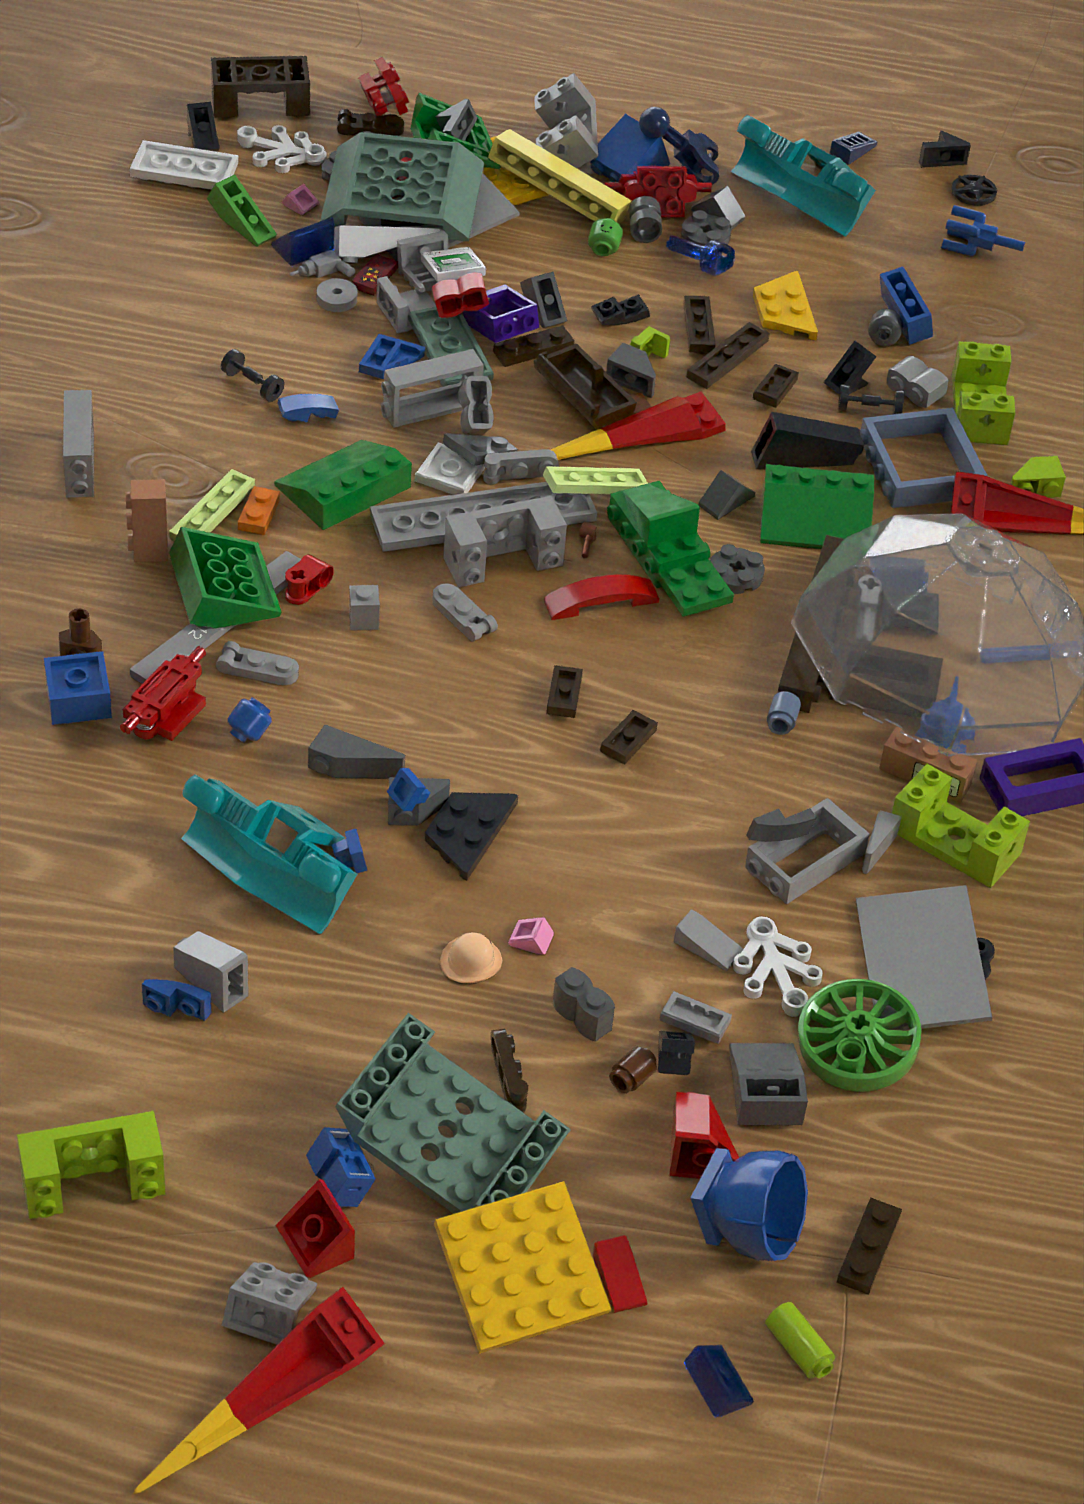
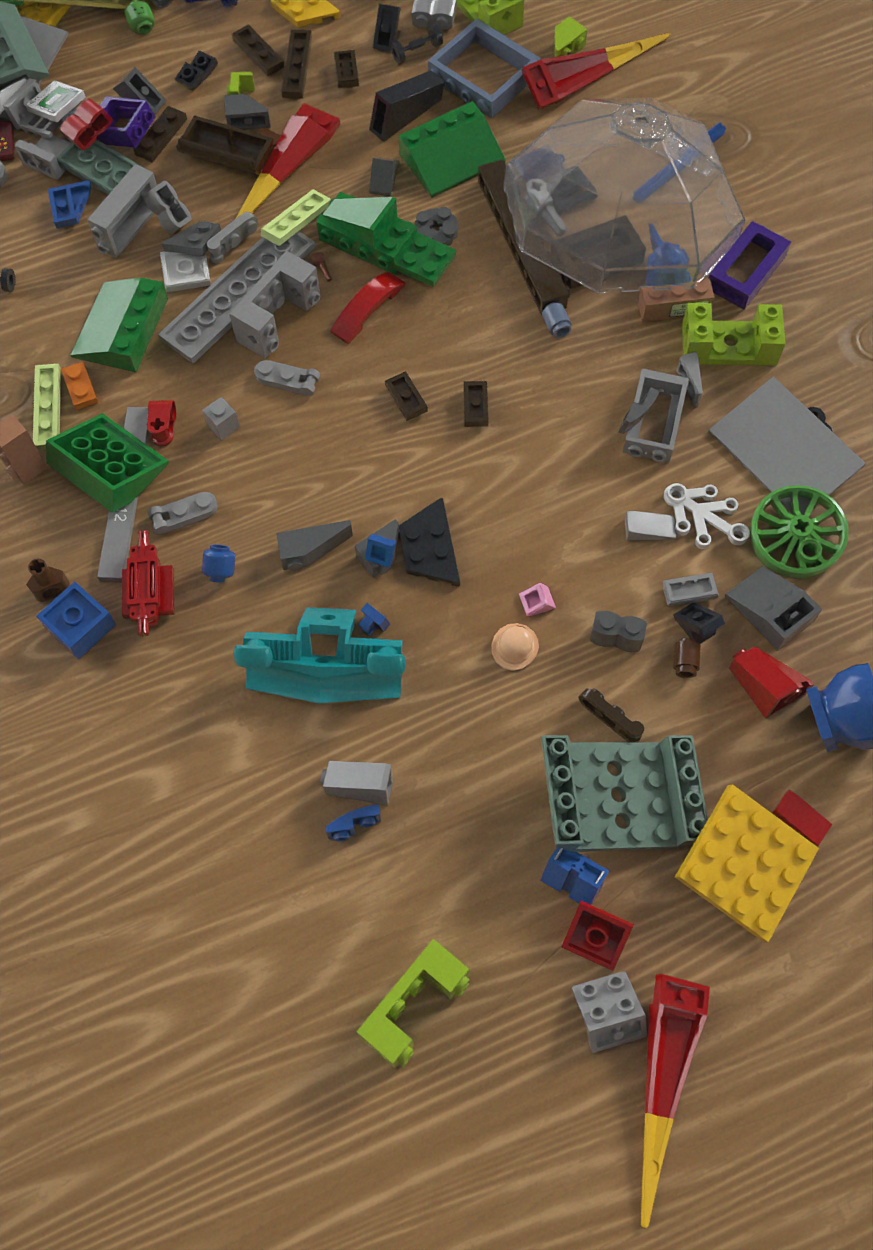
camera: 30 degrees left, 20 degrees up
(302, 405) = (42, 280): slope -> none

